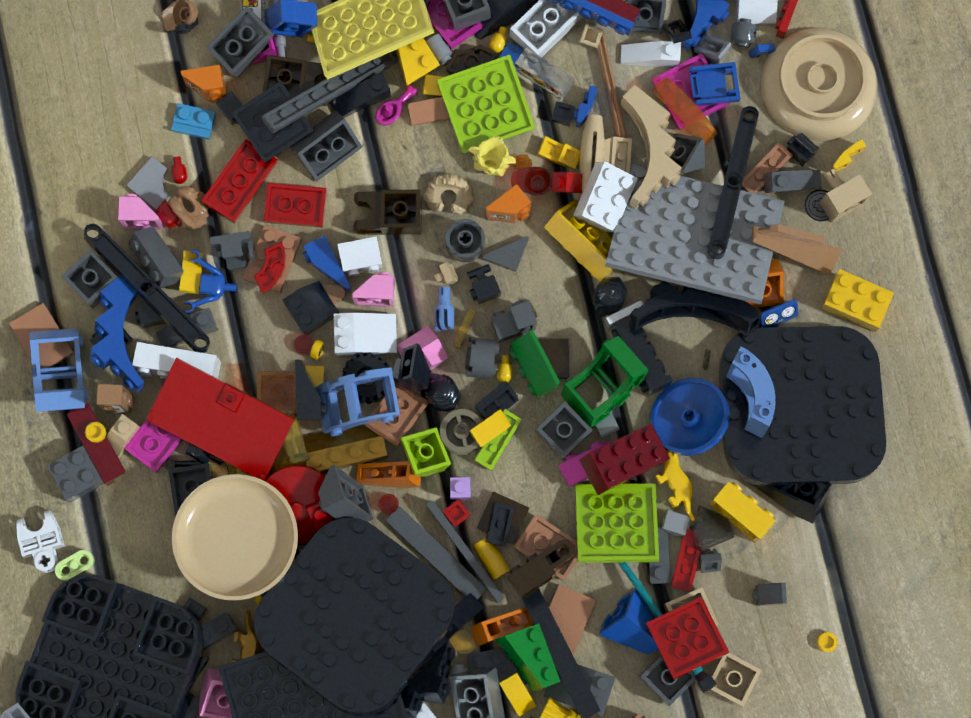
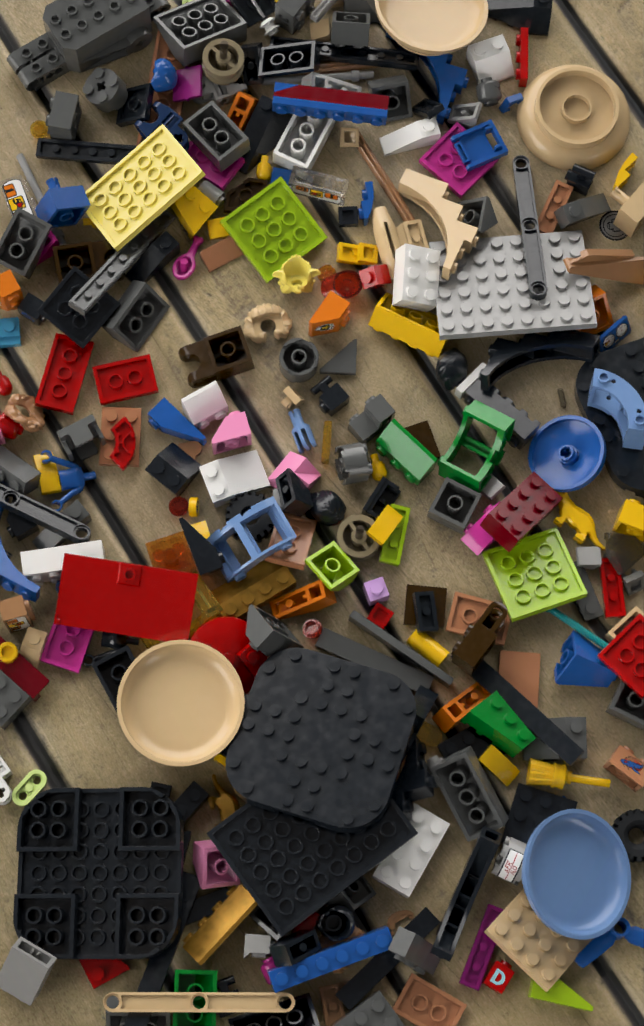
camera: 20 degrees left, 5 degrees down
(685, 109) = (459, 175): clear orange slope -> none

